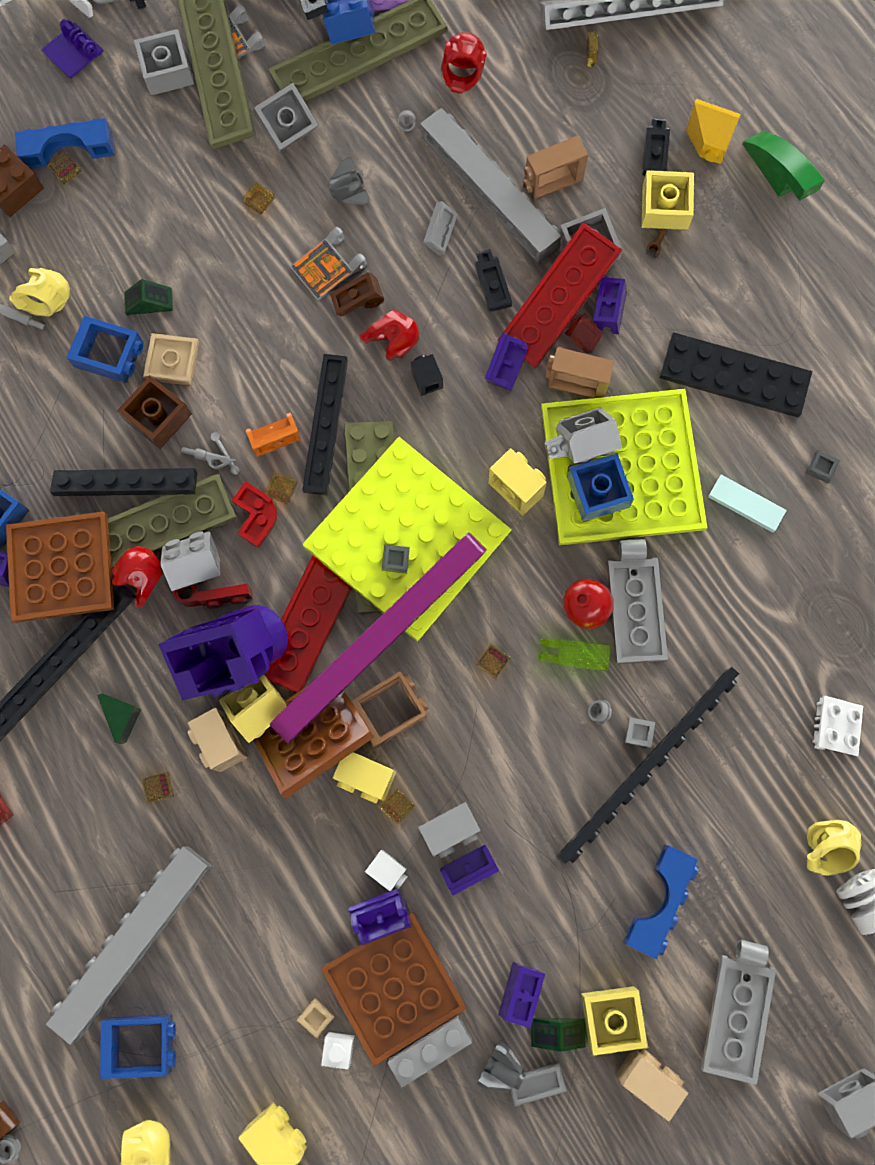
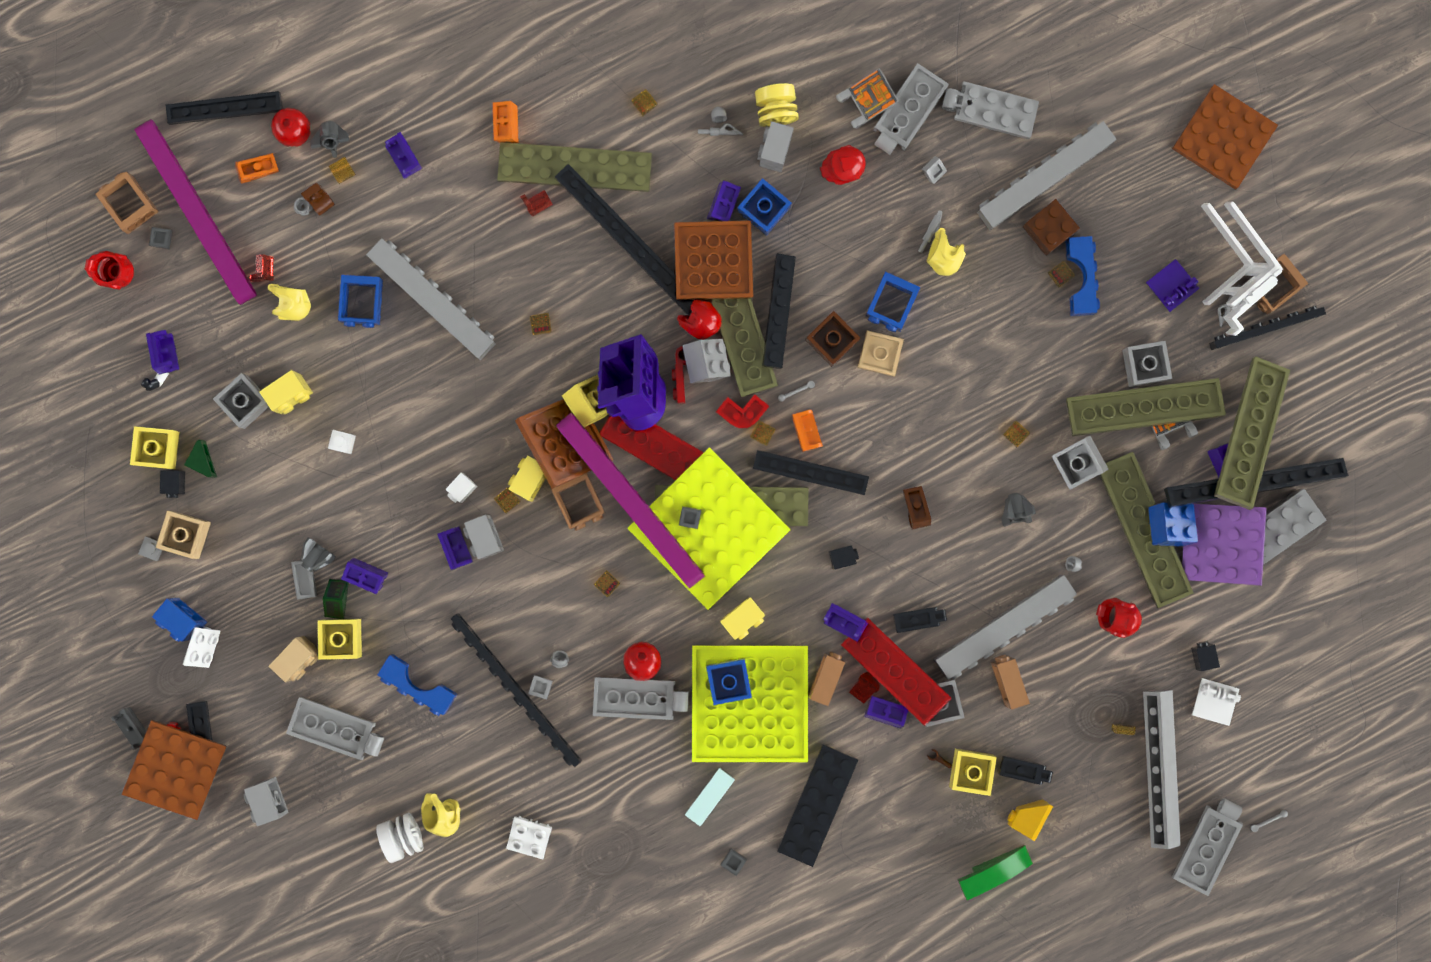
camera: 90 degrees right, 10 degrees up
(119, 716) = (596, 299): dark green slope -> none
(148, 298) = (934, 337): dark green slope -> none
(210, 457) = (793, 379): light grey hand -> none
(216, 740) = (567, 371): tan brick -> none
(315, 1018) = (365, 427): tan tile -> none
(324, 268) = (946, 483): flag -> none
(380, 916) = (428, 480): dark purple hinge -> none
(393, 990) = (379, 485): dark orange plate -> none
(398, 329) = (878, 539): red helmet -> none
(429, 1050) = (334, 506): light grey brick -> none
(440, 228) = (970, 581): light grey plate -> none
(577, 654) = (605, 648): clear neon green hinge -> none
(585, 437) = (769, 674): light grey hinge -> none

